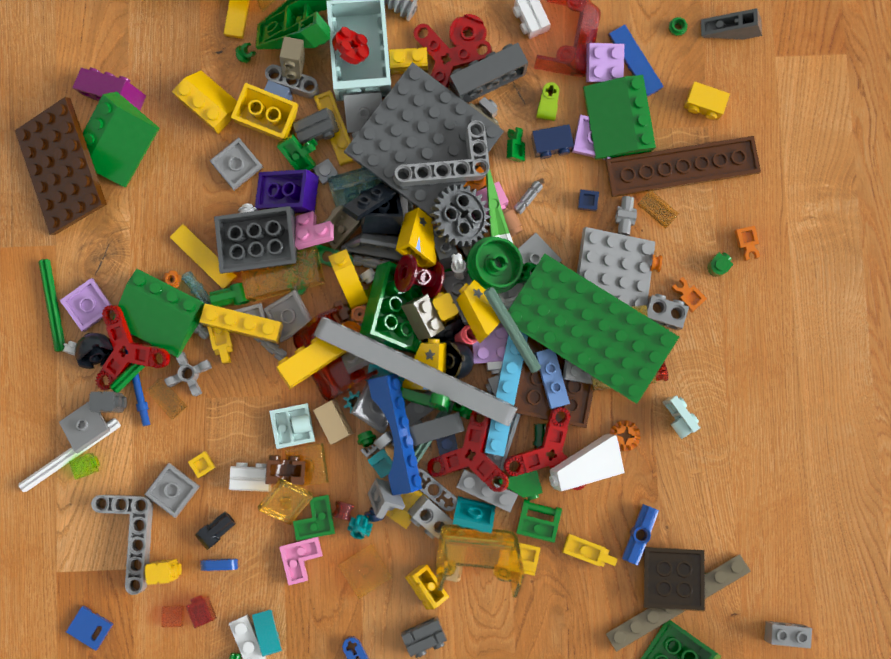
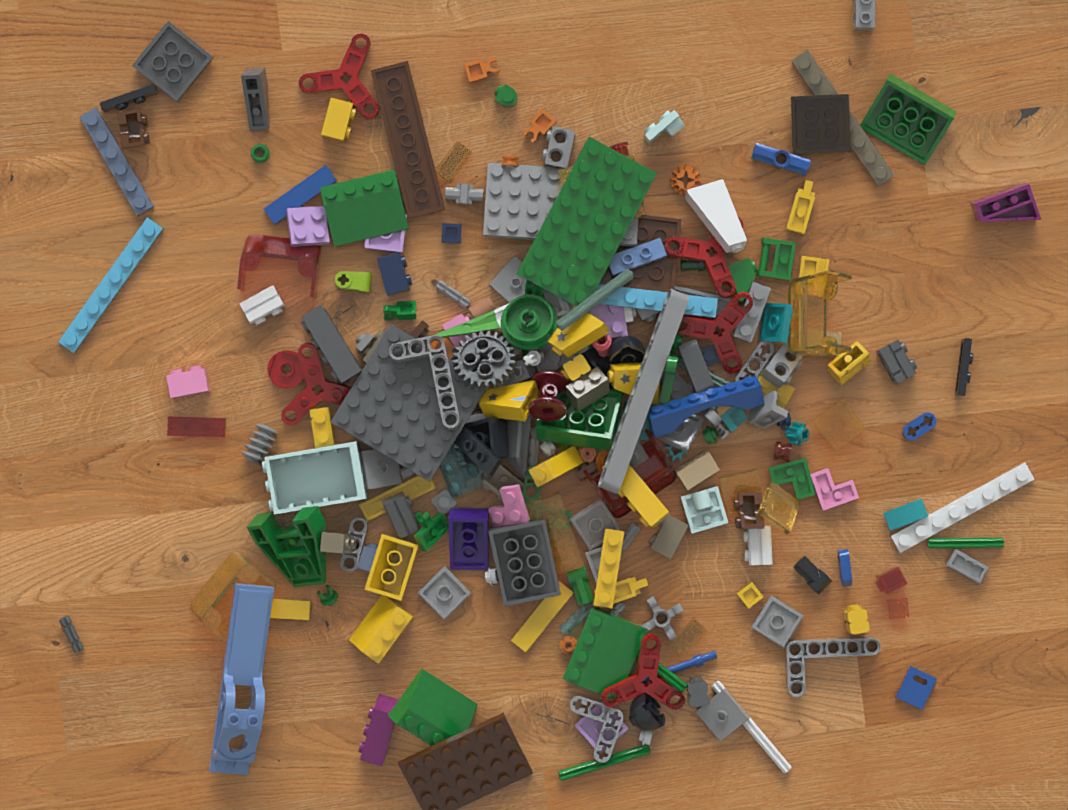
camera: 90 degrees left, 5 degrees up
(84, 466) = (761, 710): clear neon green bracket -> none
(93, 307) = (603, 717): none -> light grey beam
(268, 387) = (668, 536): none -> dark tan brick
(345, 39) = (313, 478): red plate -> none
(495, 161) = (421, 330): none -> reddish brown plate
(758, 118) = (354, 89): none -> red piece

